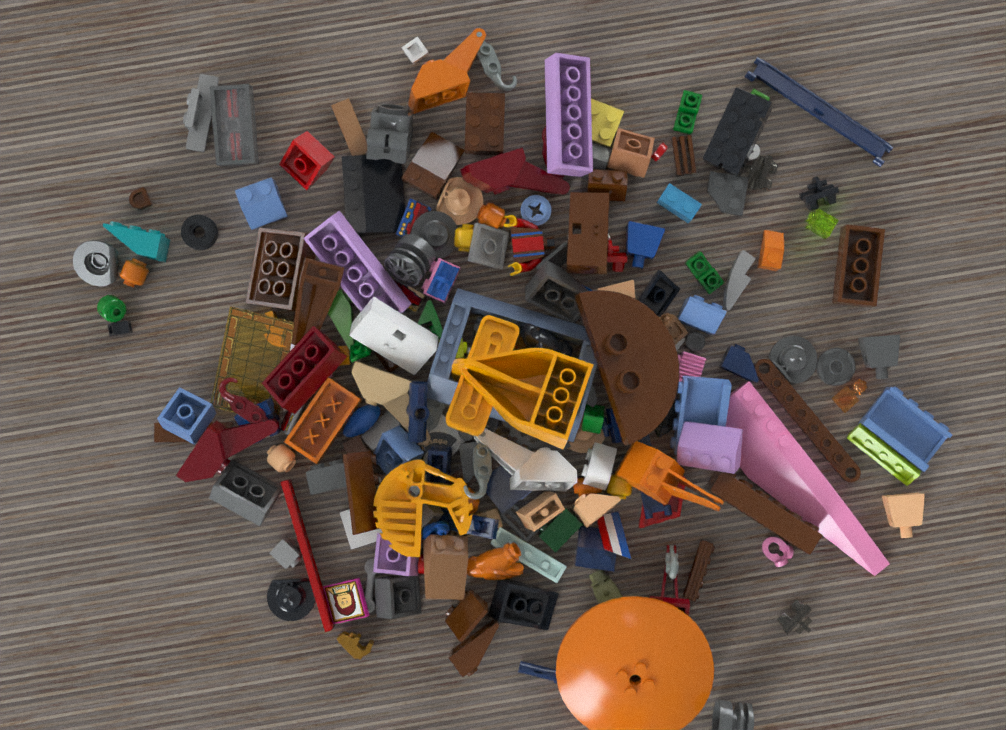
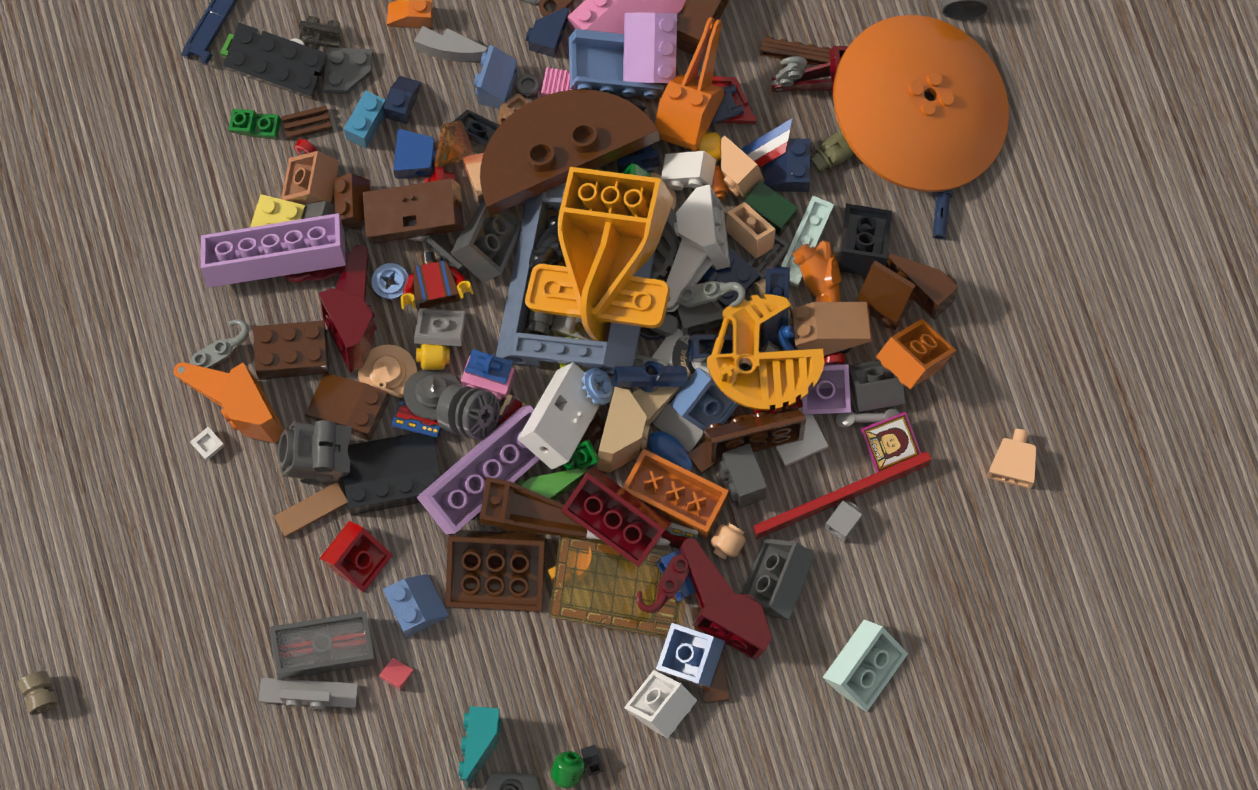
camera: 90 degrees left, 15 degrees down
(134, 272) = (519, 749): orange head -> none
(140, 199) = (425, 757): reddish brown tile -> none
(155, 387) = (661, 703): none -> white slope
(166, 553) = (865, 664): none -> light aqua slope
(189, 227) = (451, 665): black tyre -> none
(208, 183) = (396, 673): none -> coral slope
(290, 598) = (898, 512): black hat -> none
(318, 699) = (1015, 461): none -> light nougat torso
(351, 644) = (941, 428): pearl gold hand -> none
(412, 633) = (915, 353): none -> orange brick
(415, 374) = (606, 387): none -> light blue gear
(429, 315) = (532, 385): green slope -> none
(491, 215) = (402, 329): orange head -> none
(642, 272) = (453, 144): none -> clear orange slope
(695, 235) = (401, 99): none -> dark blue slope
(704, 272) = (444, 85): green slope -> none

